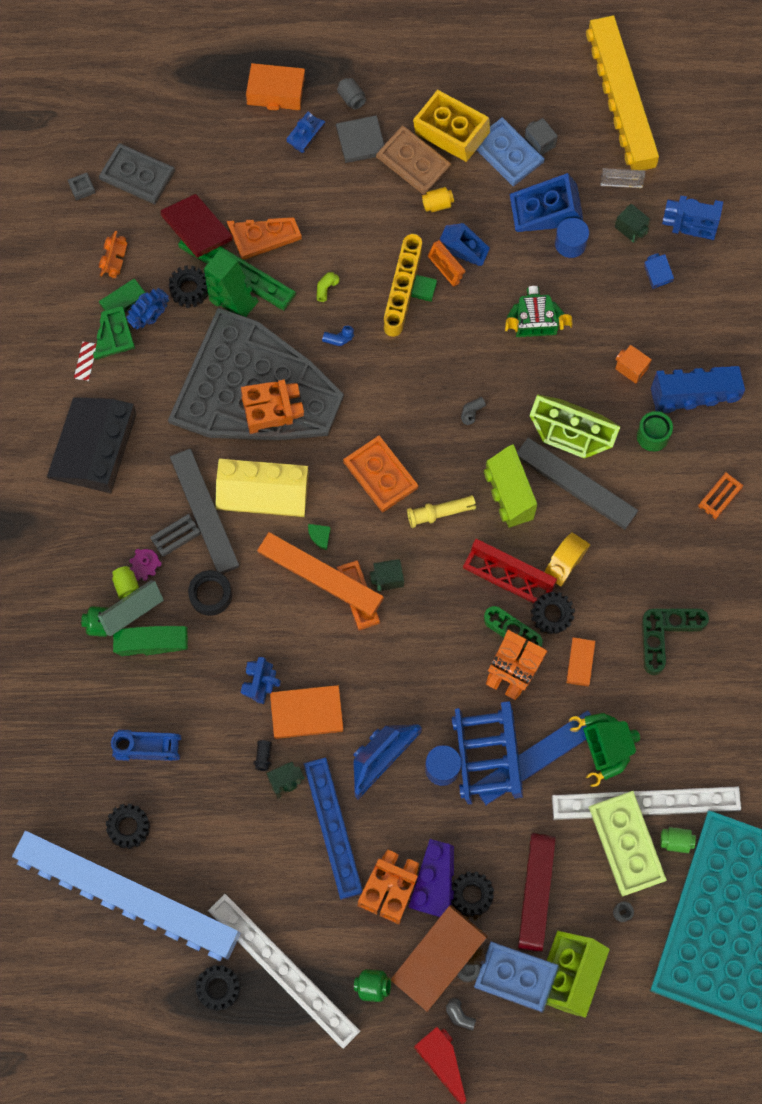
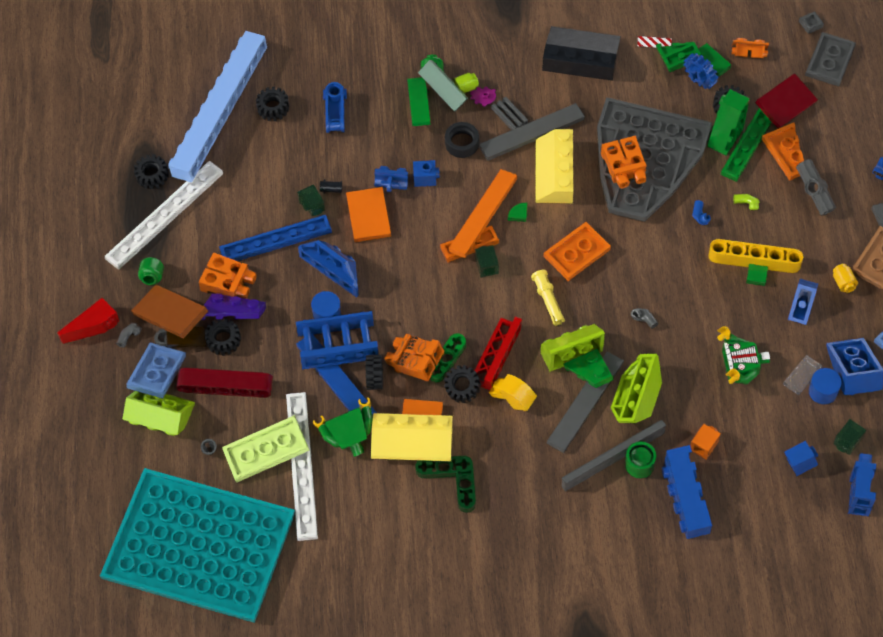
camera: 90 degrees right, 10 degrees down
(256, 638) = (425, 173): none -> blue brick
(308, 211) = (820, 197): none -> dark grey piece
(446, 263) = (782, 287): orange tile -> none
(536, 710) = (374, 372): none -> black tyre
(542, 469) = (590, 368): none -> green wing
(552, 259) = (802, 375): none -> clear tile
(623, 671) = (411, 437): none -> light yellow slope
(647, 459) = (611, 456): none -> dark grey tile
(677, 840) = (269, 486): bright green brick -> none
(710, 509) = (600, 530): orange tile -> none

